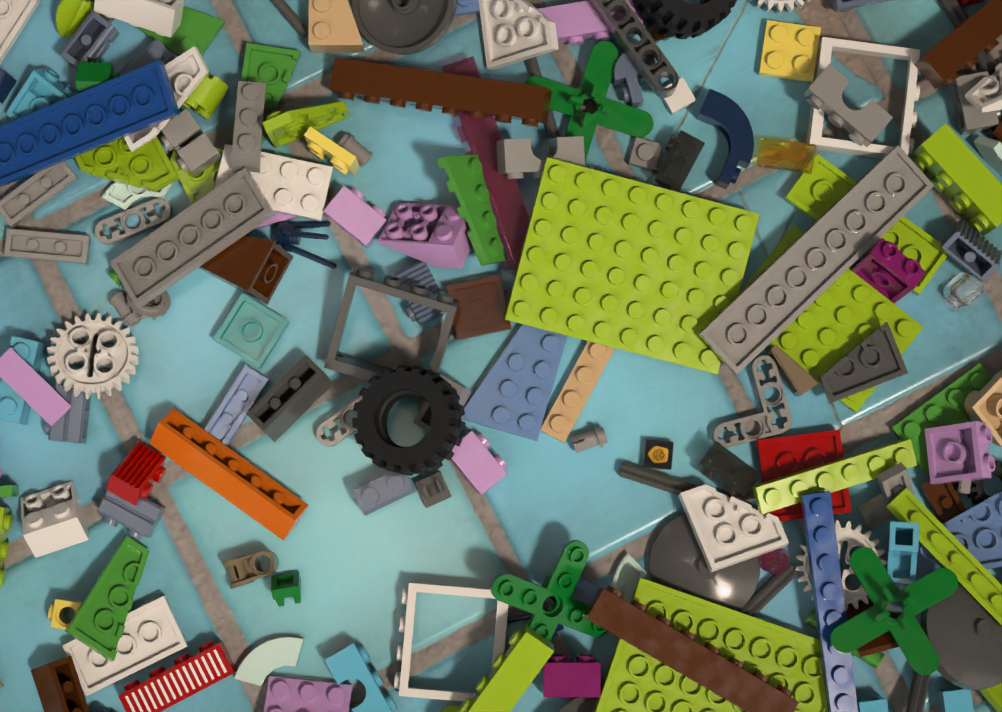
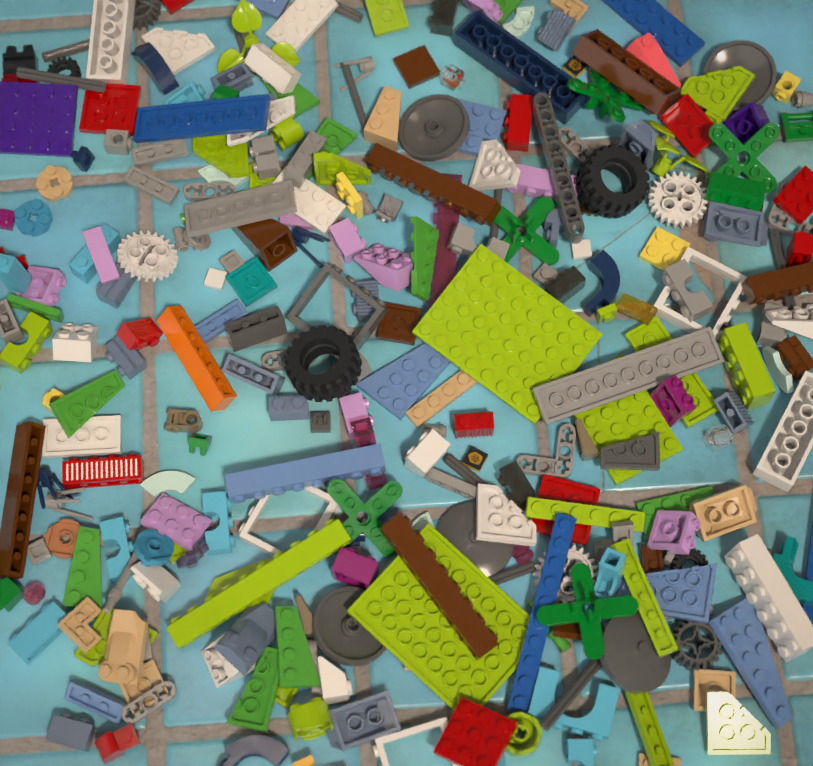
camera: 25 degrees right, 15 degrees down
(200, 346) = (215, 279): none -> white tile
(212, 313) = (231, 261): none -> light grey plate
(316, 465) = (253, 374): none -> sand blue brick
(392, 146) = (389, 209): none -> flat silver bracket
(449, 578) = (304, 473): none -> medium blue brick
(520, 513) = (364, 436): none -> clear pink arch
(595, 480) = (427, 453): none -> white slope
(638, 410) = (473, 424): none -> red brick
(641, 503) = (451, 483): none -> light grey beam
(749, 178) = (606, 313): none -> lime plate

